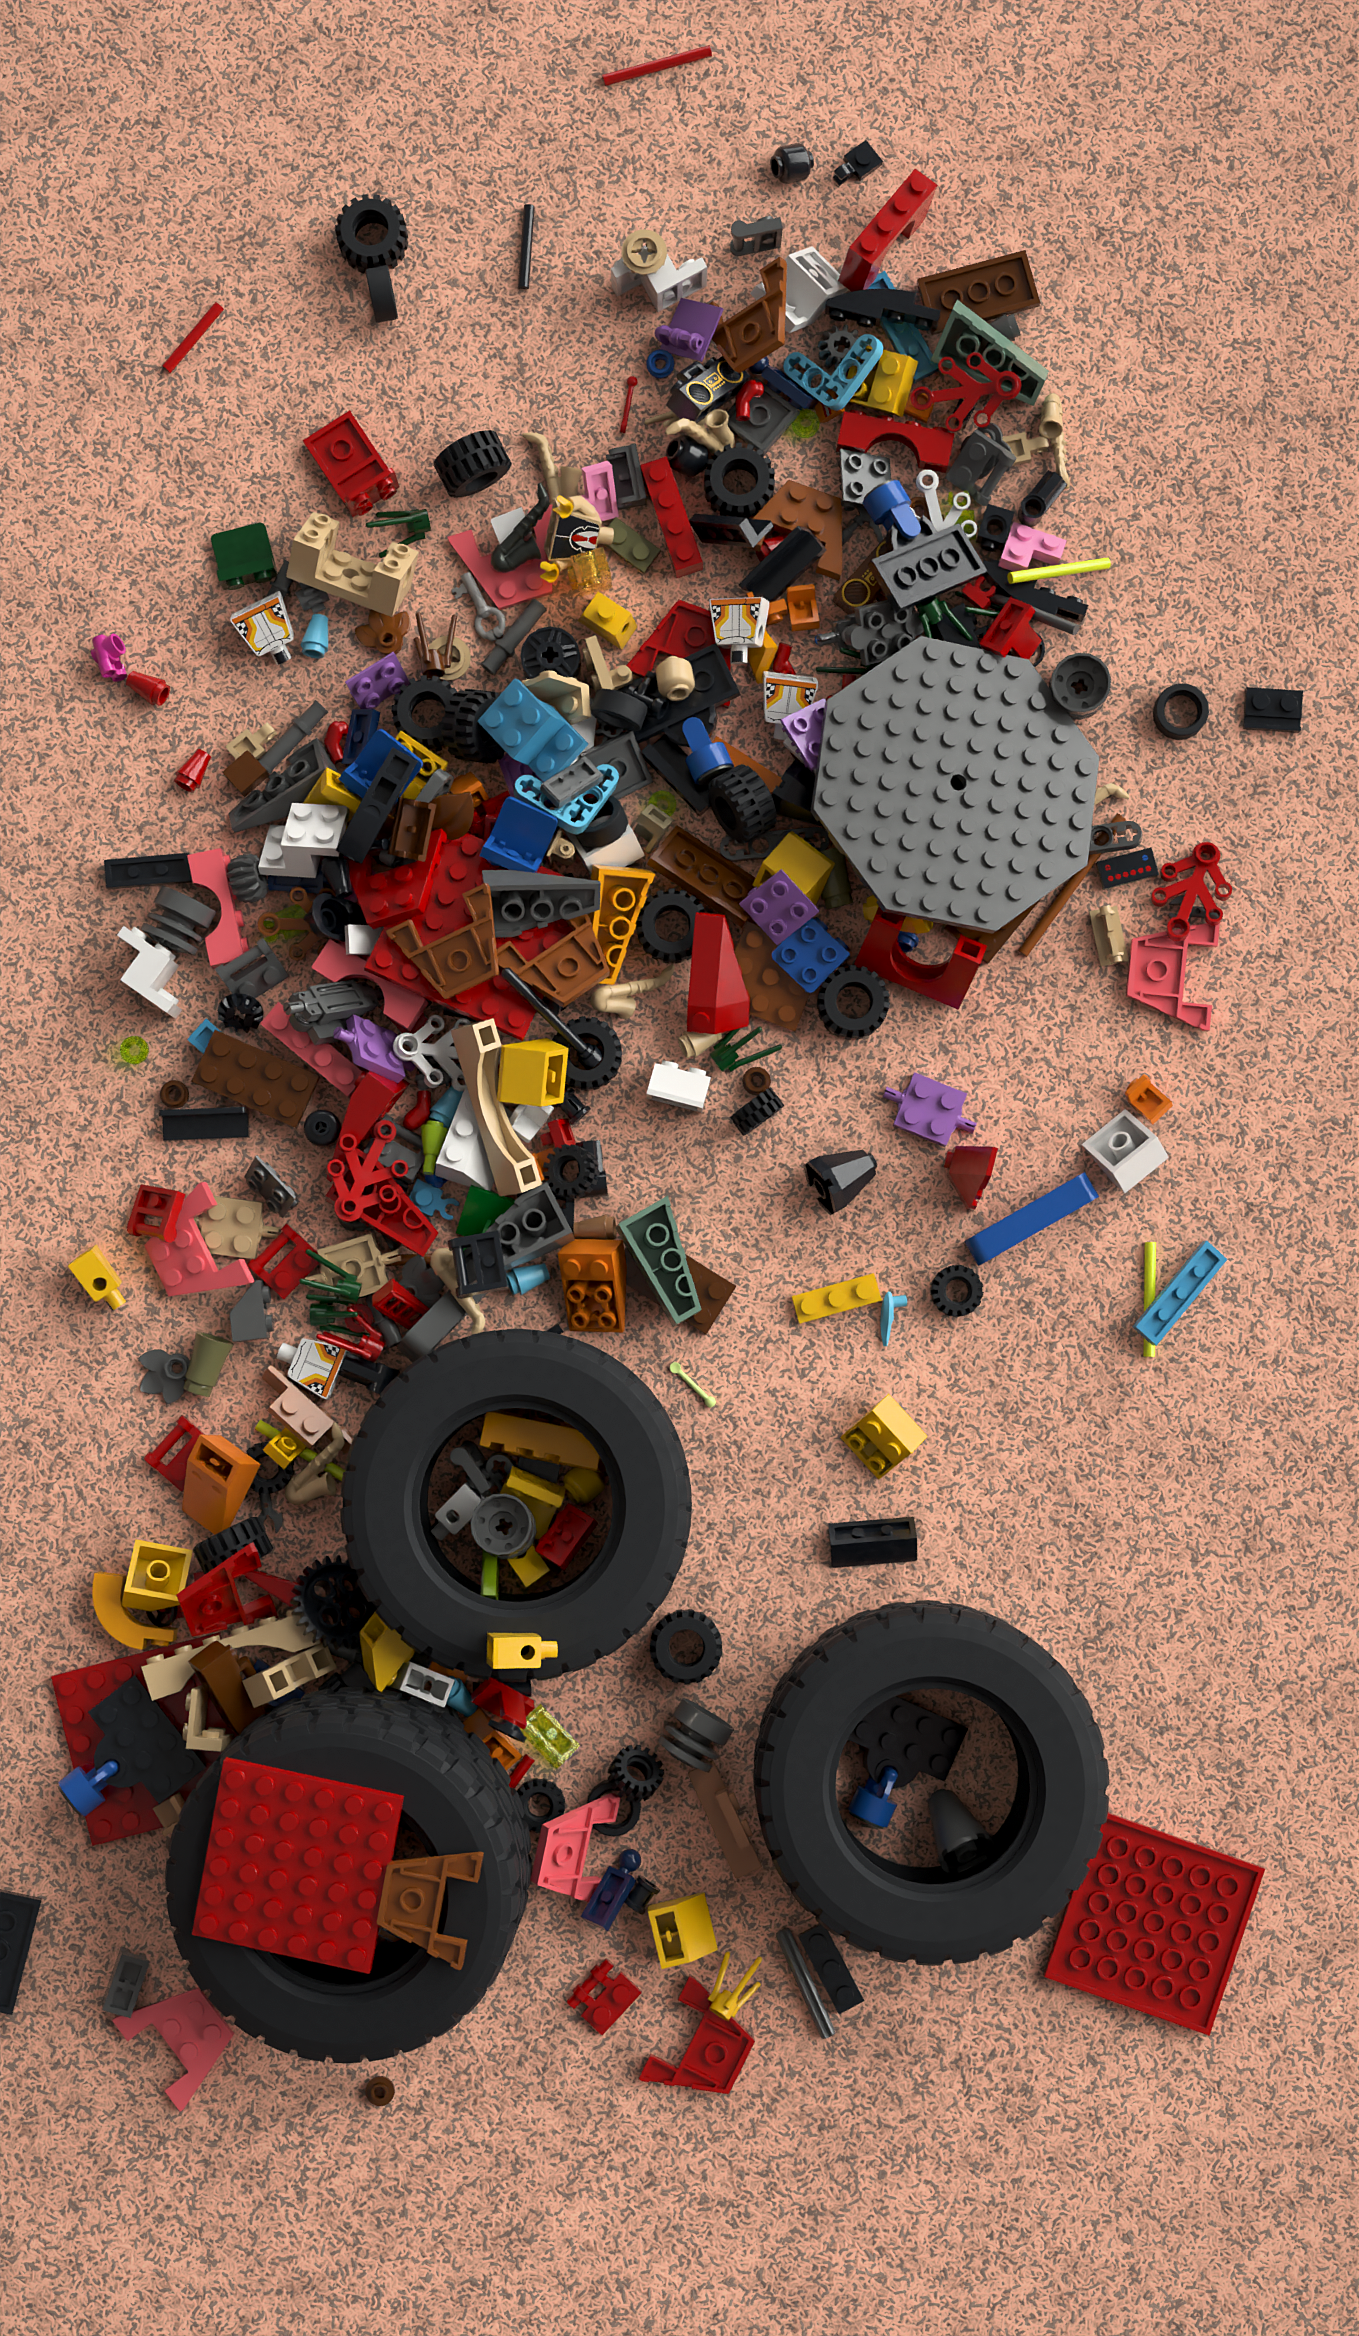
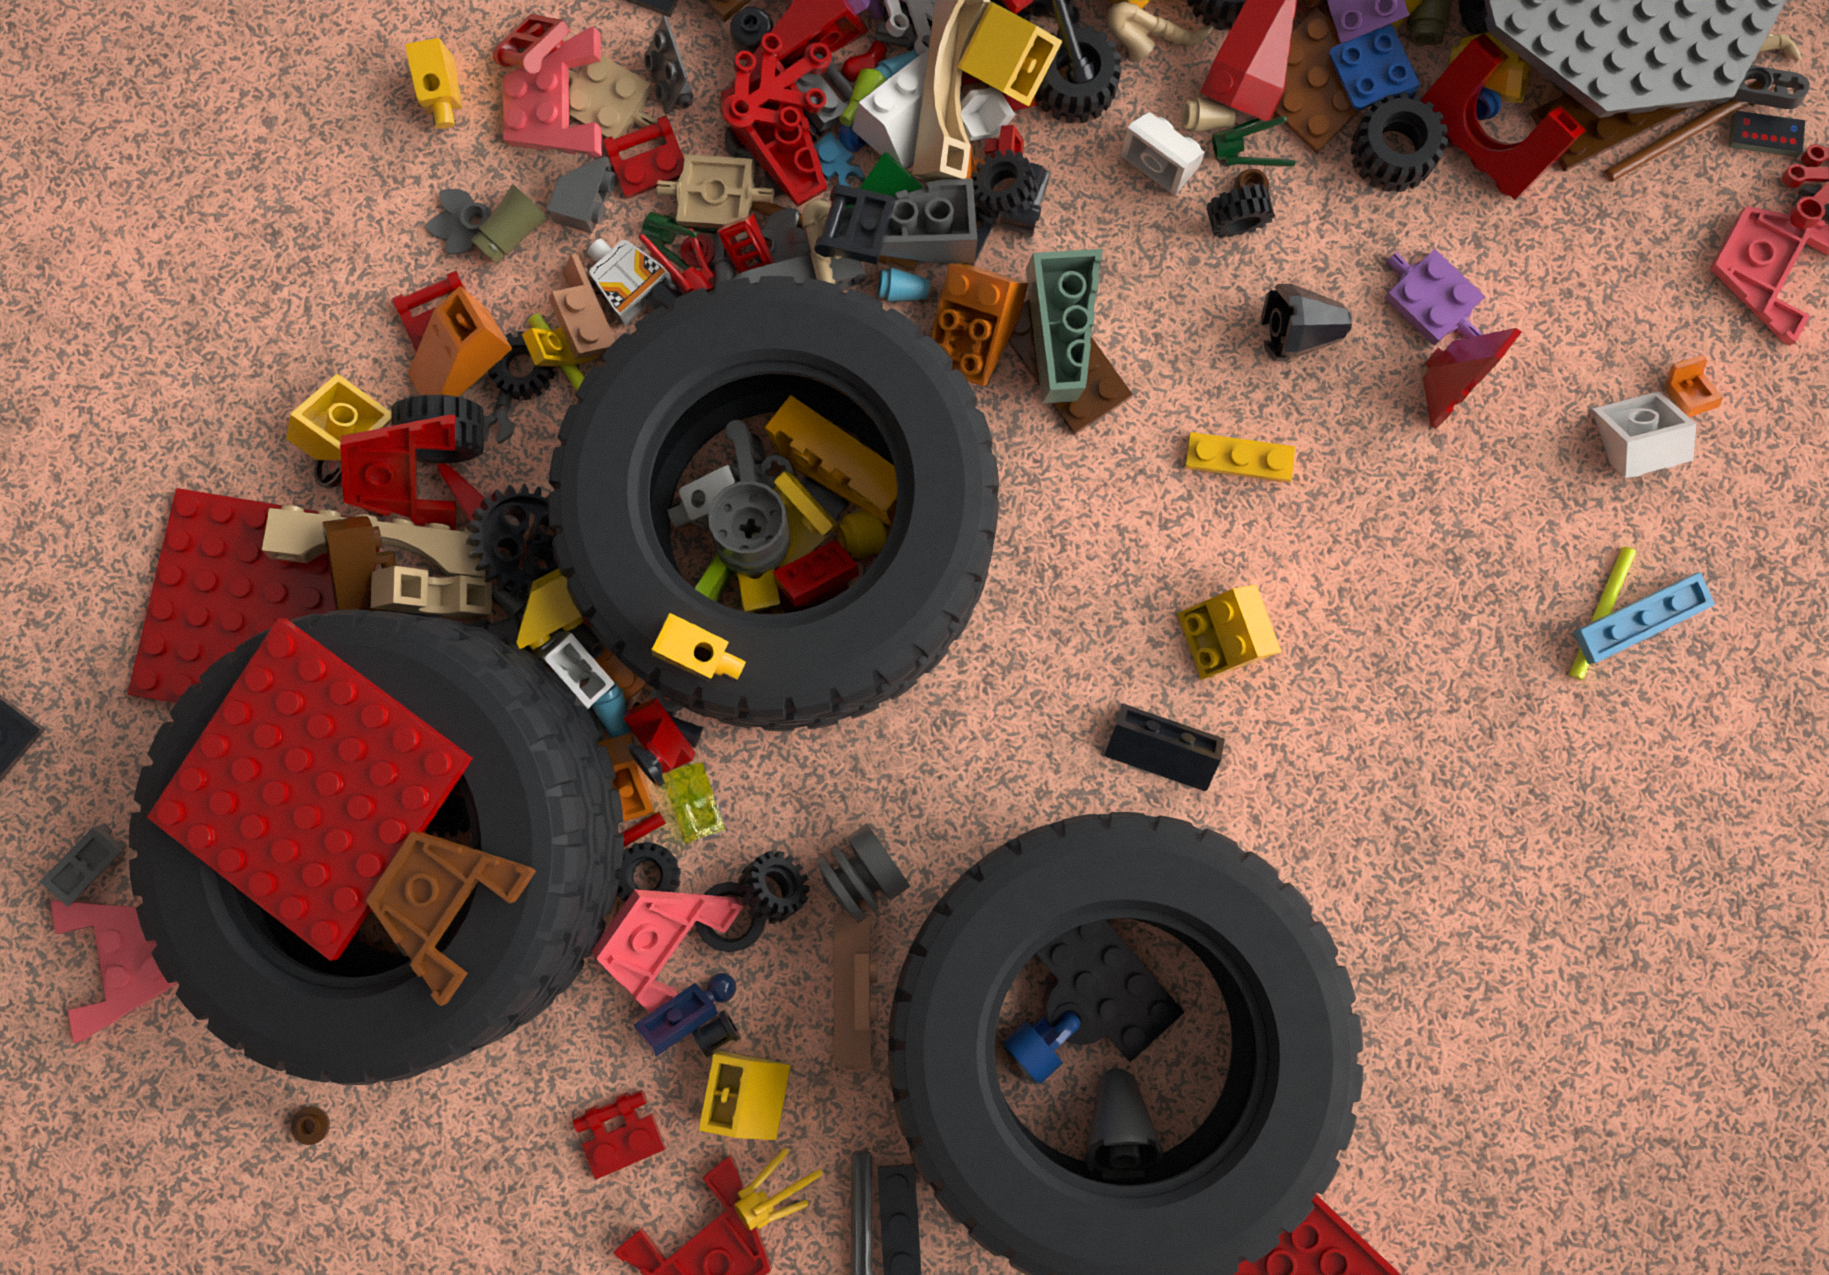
camera: 30 degrees right, 5 degrees down
(117, 1619) = (279, 457): light orange arch -> none
(136, 1748) = (219, 605): black plate -> none
(194, 1731) = (306, 591): tan bracket -> none
(307, 1483) = (552, 403): tan piece -> none
(346, 1291) = (697, 205): dark green plant -> none
(573, 1107) = (1035, 125): black bush -> none
(596, 1228) = (1003, 263): medium nougat cone -> none
(693, 1671) = (897, 735): black tyre -> none
(709, 1401) = (1023, 456): yellowish green hinge -> none
(887, 1314) = (1290, 499): medium azure bar -> none
(974, 1286) = (1397, 492): black tyre -> none
(1031, 1218) = (1503, 460): blue beam -> none
(1108, 935) = (1717, 194): tan hinge -> none

